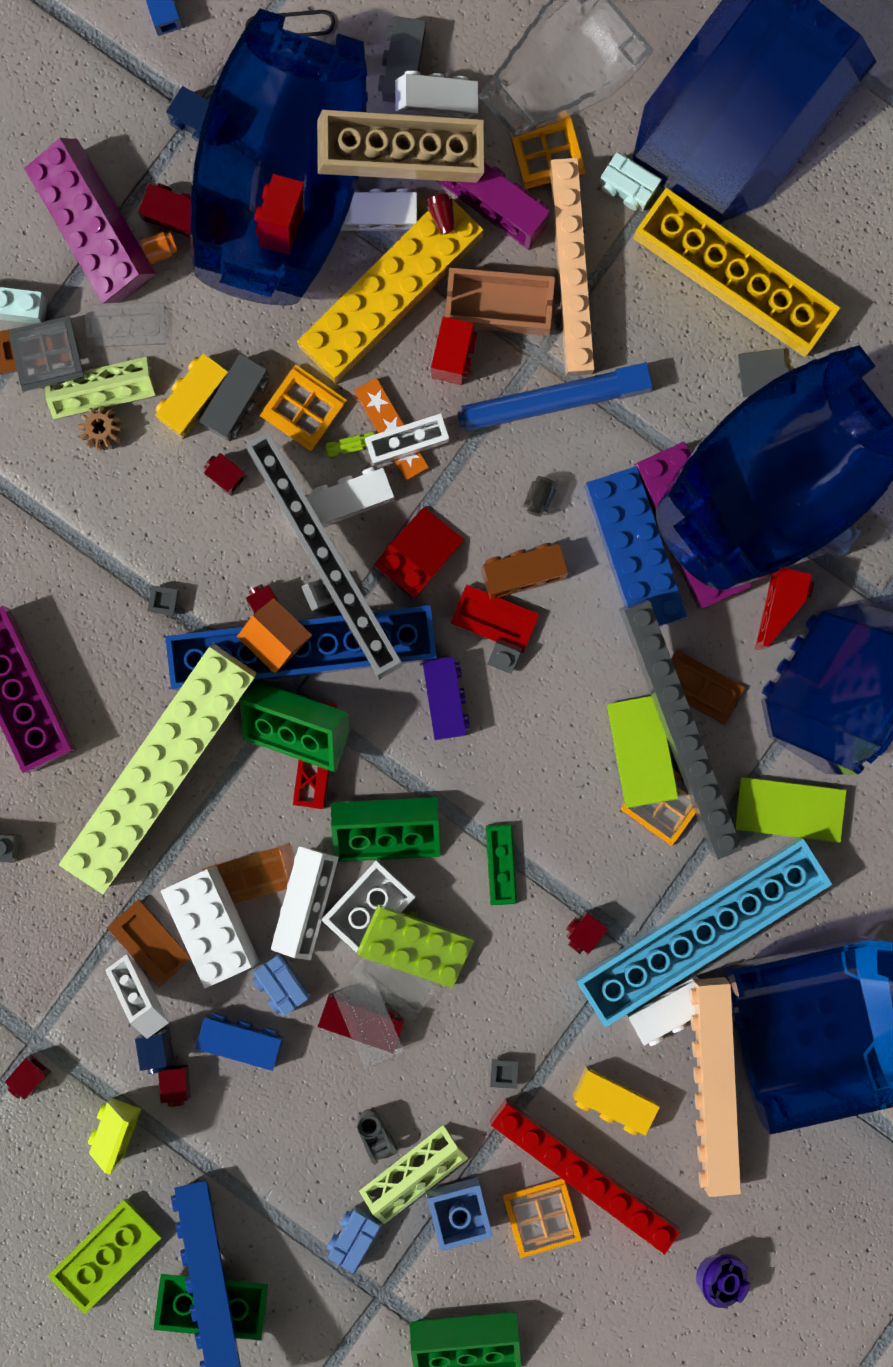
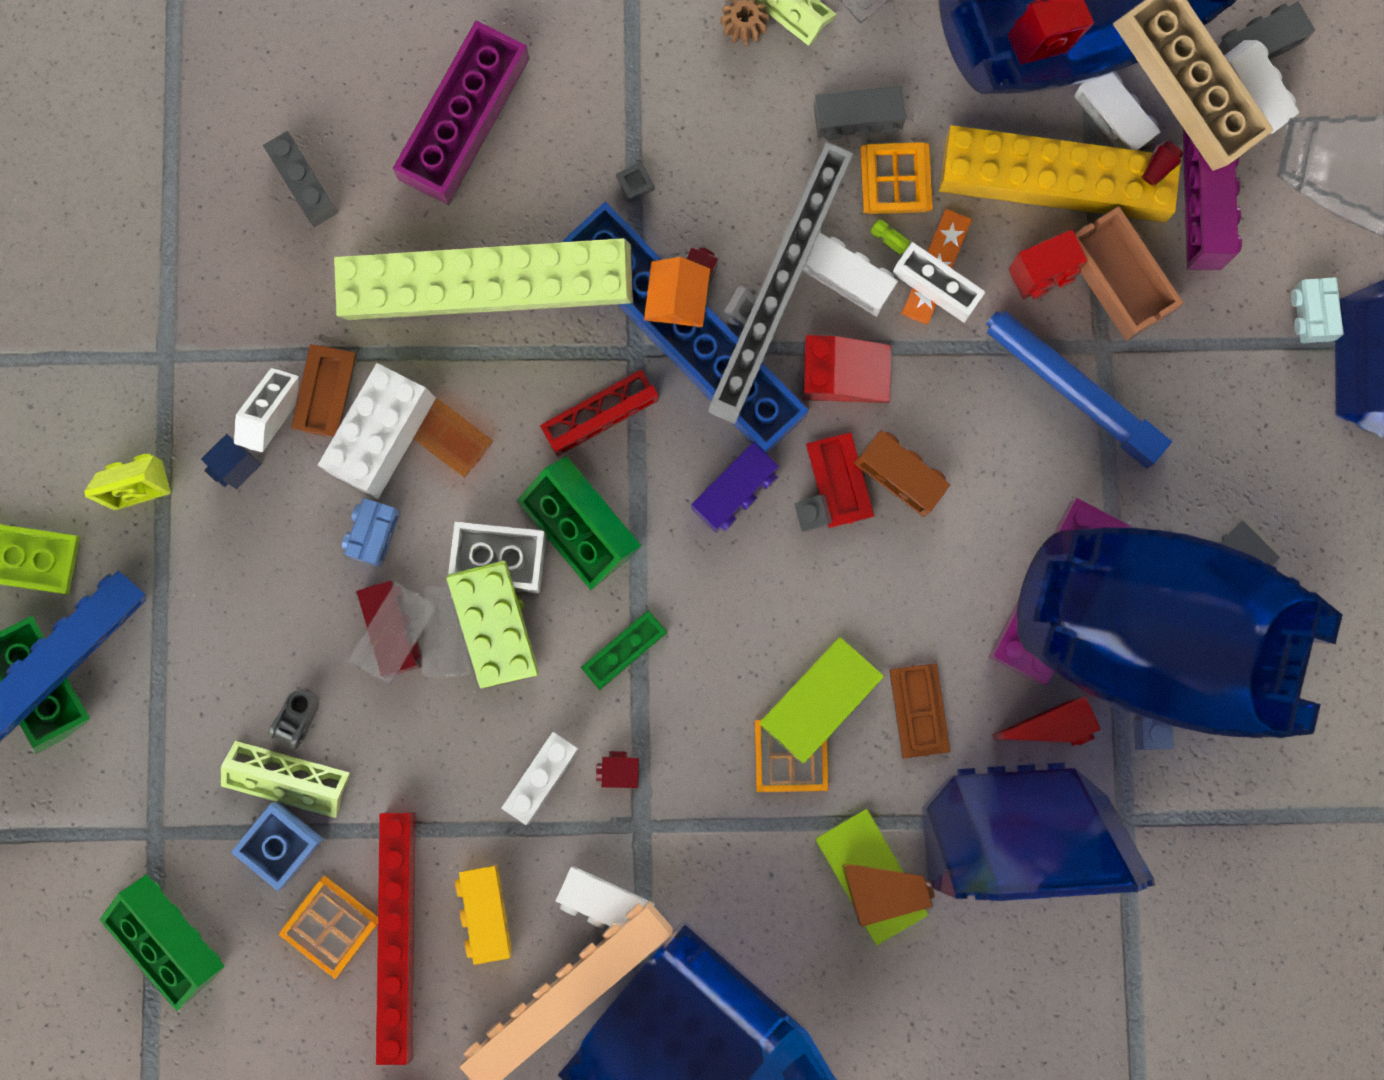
camera: 50 degrees right, 5 degrees down
(26, 1077) = (126, 371): dark red brick -> none
(174, 1085) = (212, 505): dark red brick -> none
(191, 395) = (831, 73): yellow brick -> none
(224, 473) = (786, 152): dark red brick -> none
(239, 1041) = (293, 533): blue brick -> none
(294, 725) = (611, 371): green slope -> none
(304, 903) = (459, 498): white brick -> none
(354, 1239) = (186, 768): medium blue brick -> none
(504, 1073) = (436, 793): dark grey plate -> none
(540, 496) = (979, 439): clear smoke brick -> none
(541, 146) = (1285, 222): light orange piece -> none
(549, 992) = (540, 778): none -> white brick
(571, 266) = (1203, 314): light nougat brick -> none
(634, 544) = (996, 559): blue brick -> none
(680, 728) = (868, 717): dark grey brick -> none
(703, 931) = (700, 878): medium azure brick -> none
(735, 272) = (1314, 462): yellow brick -> none
(810, 809) = (885, 893): none -> dark orange slope

